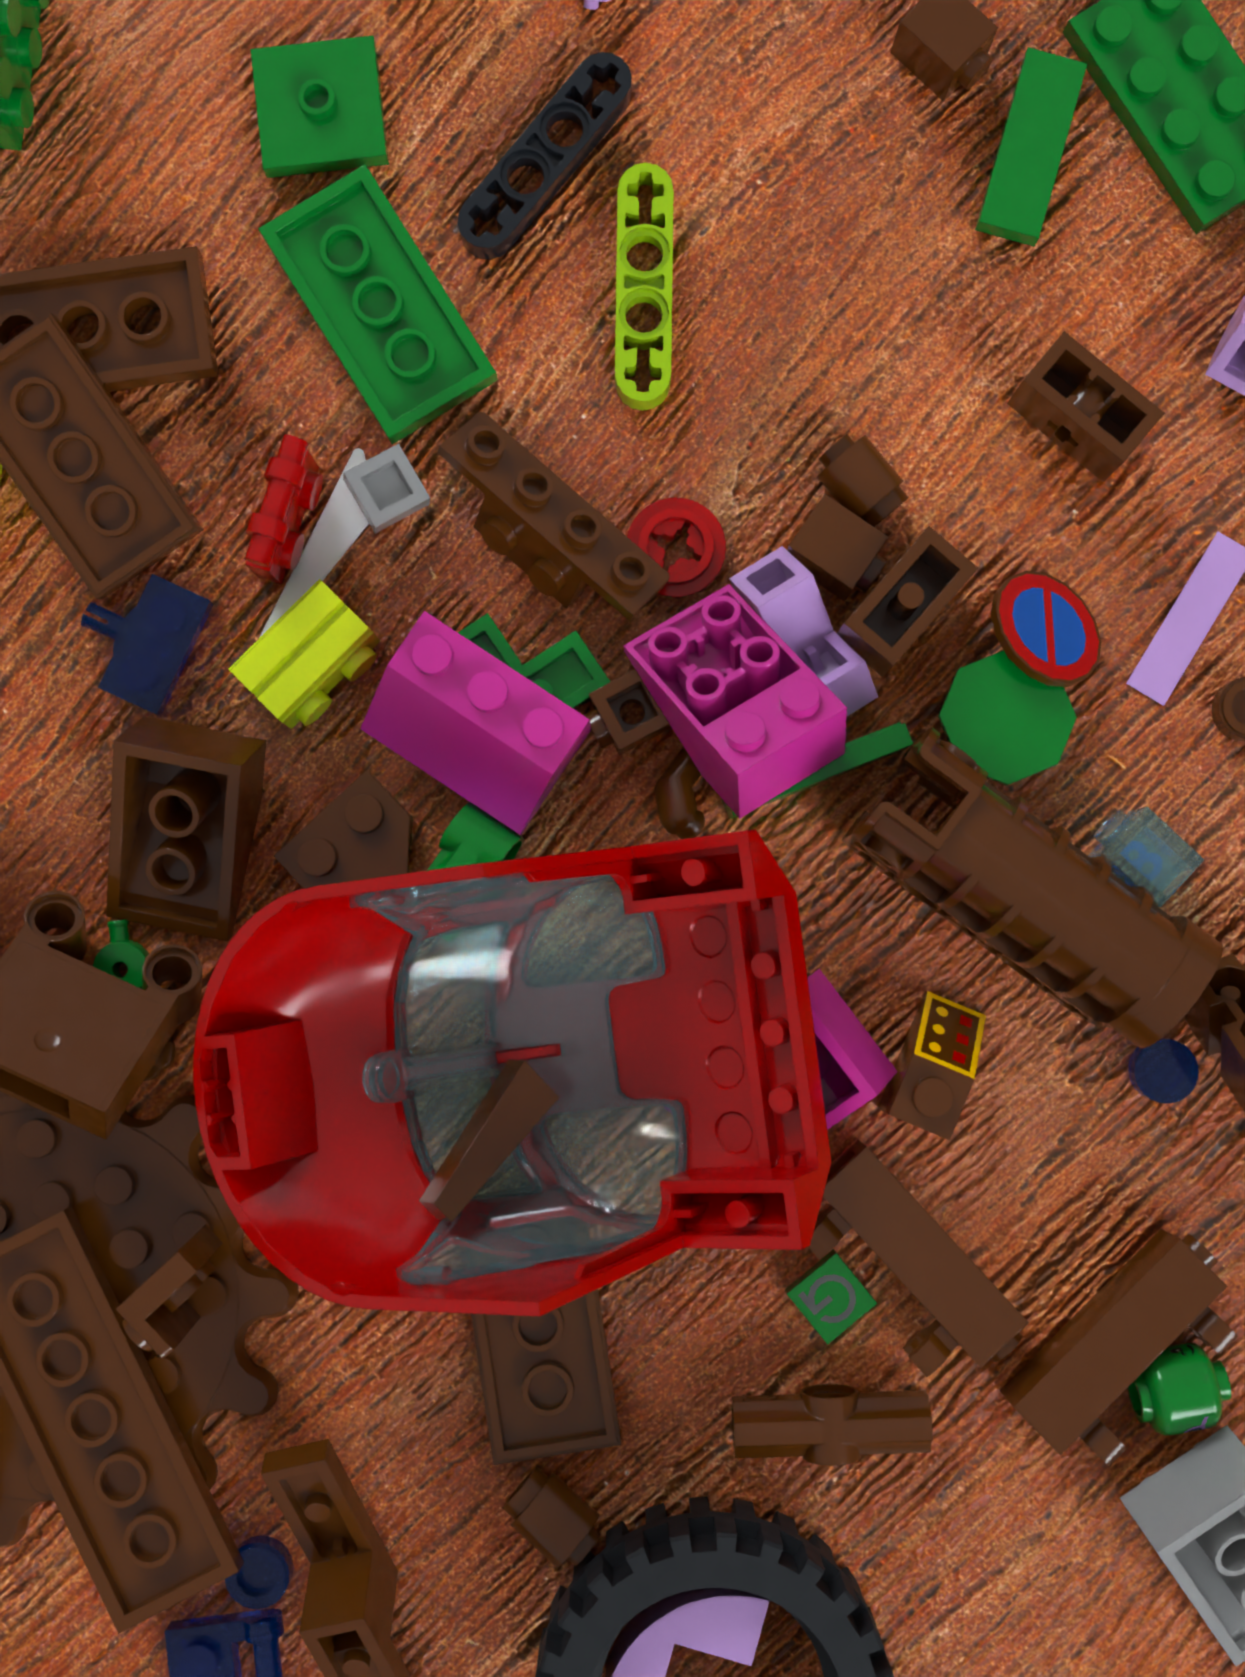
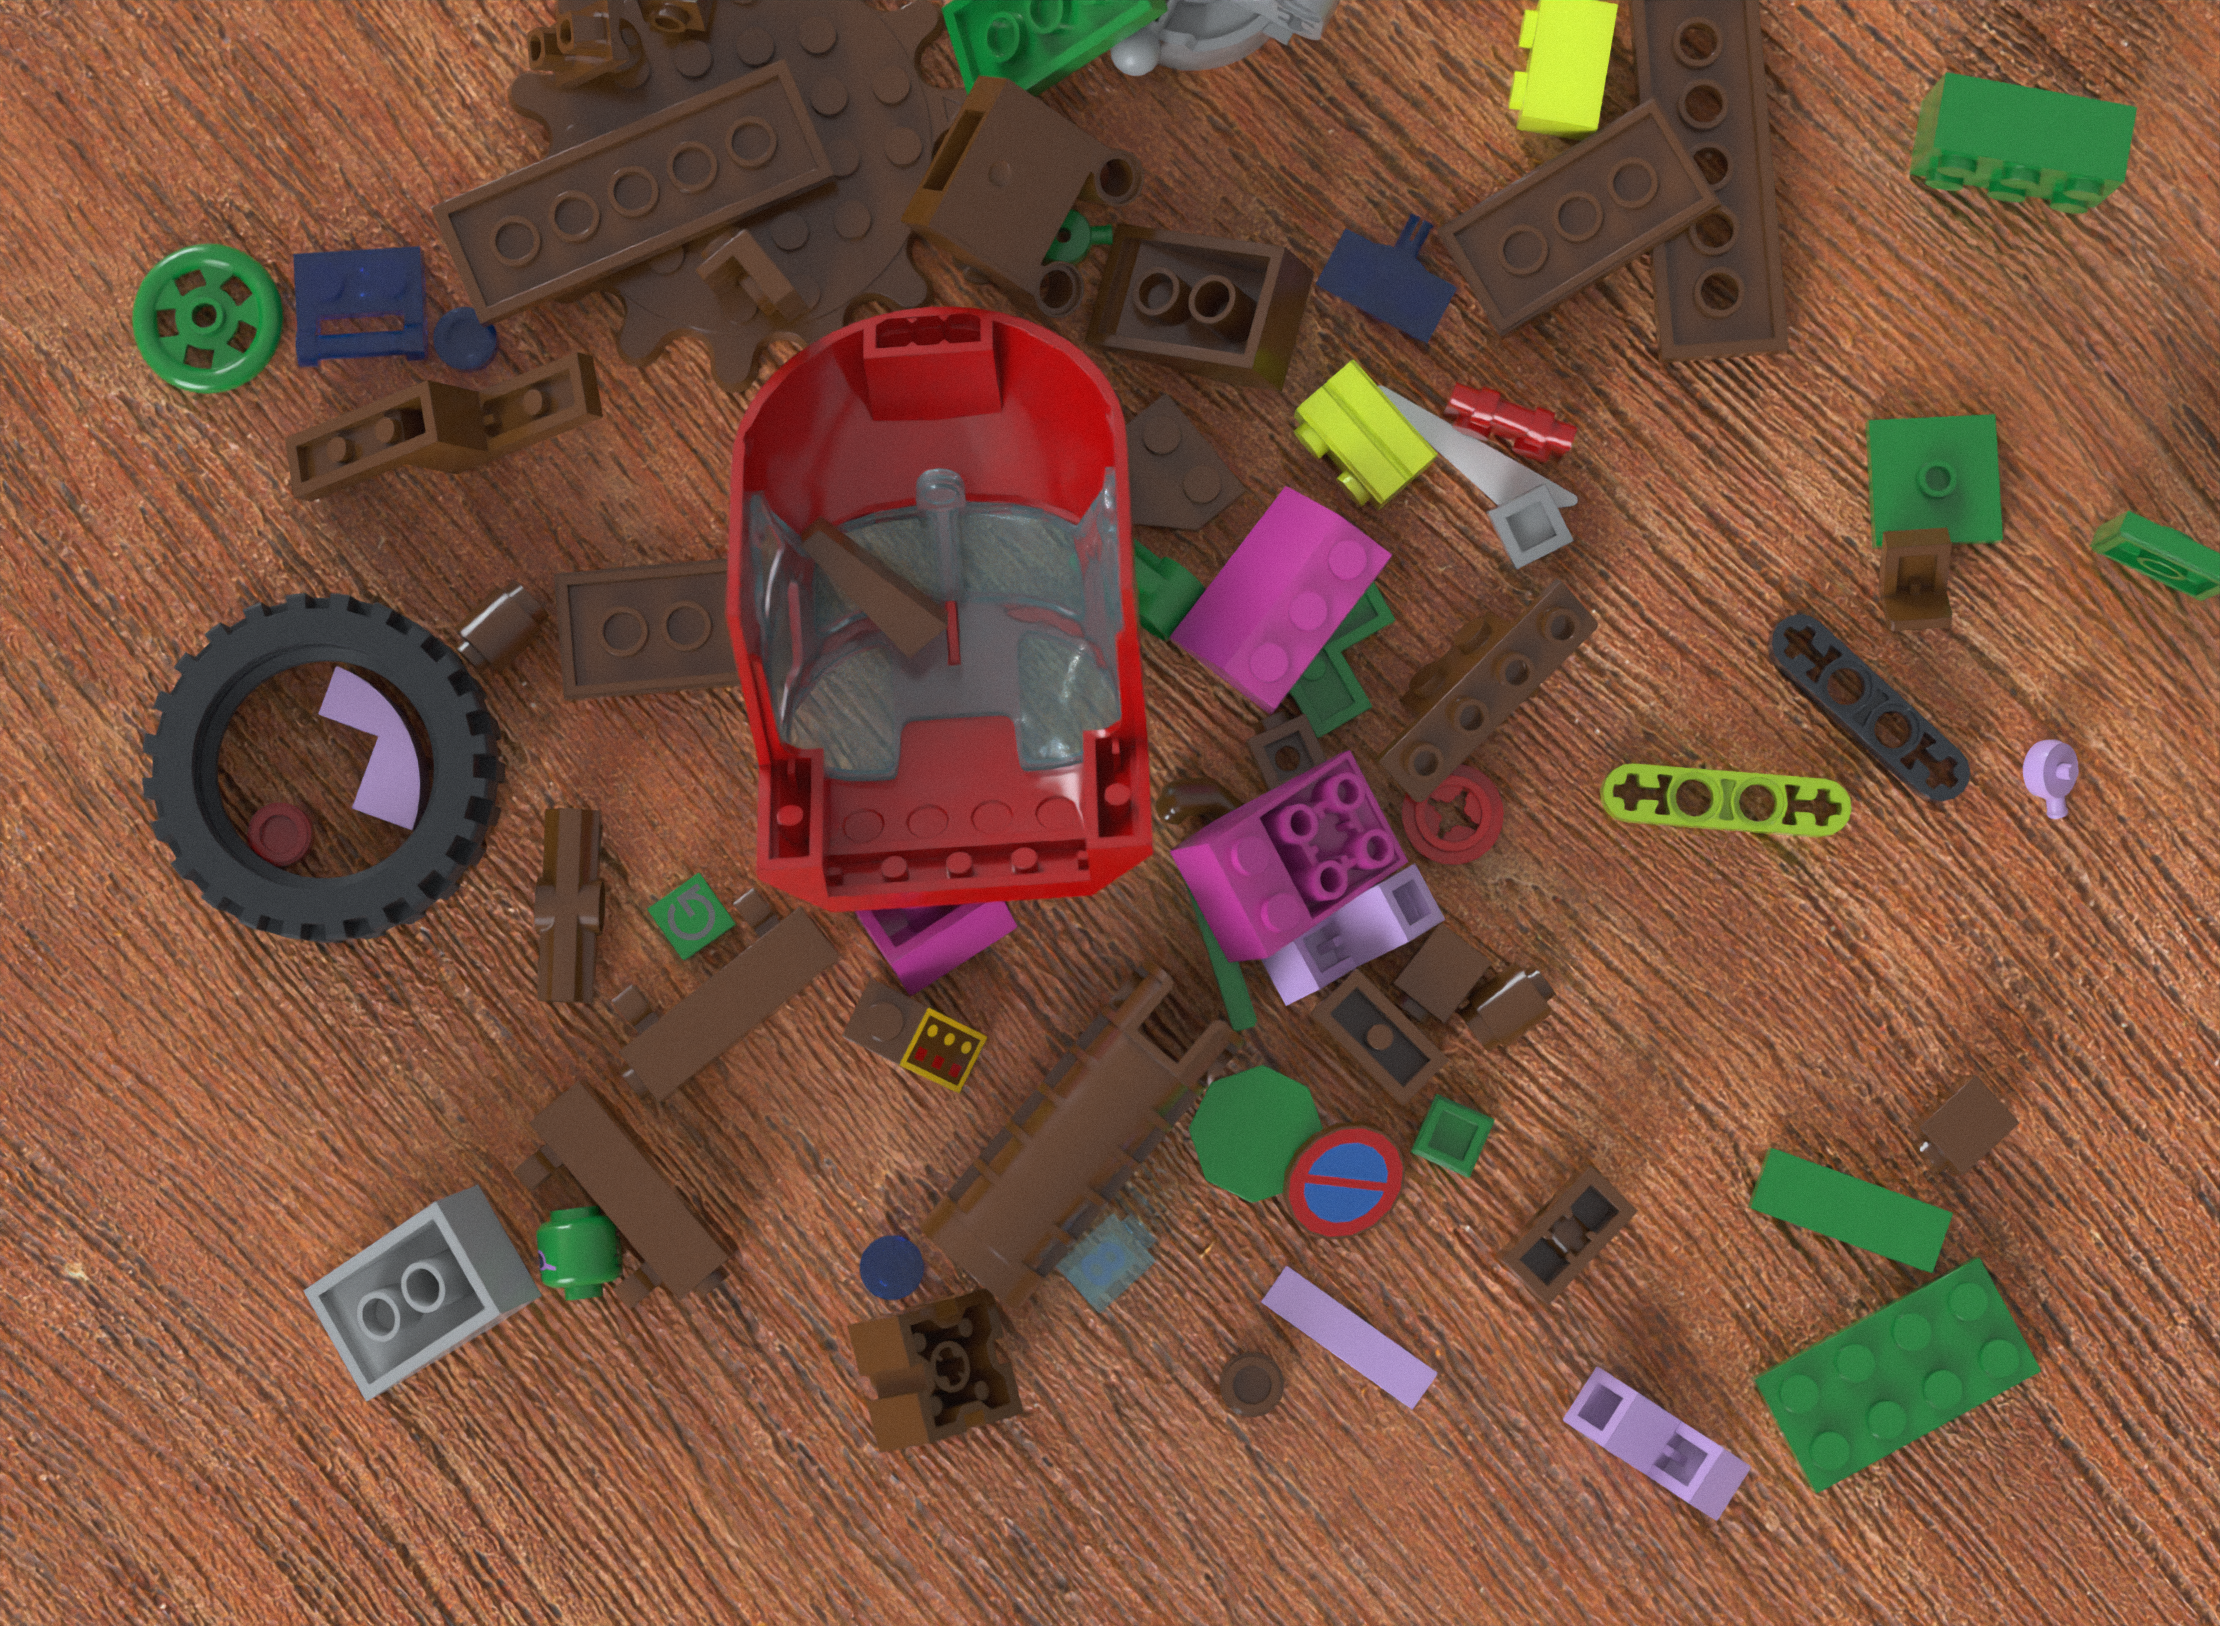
camera: 90 degrees right, 0 degrees up
(378, 304) = (1720, 528): green plate -> none
(416, 114) = (1915, 579): none -> reddish brown bracket
(989, 529) = (1452, 1135): none -> green tile

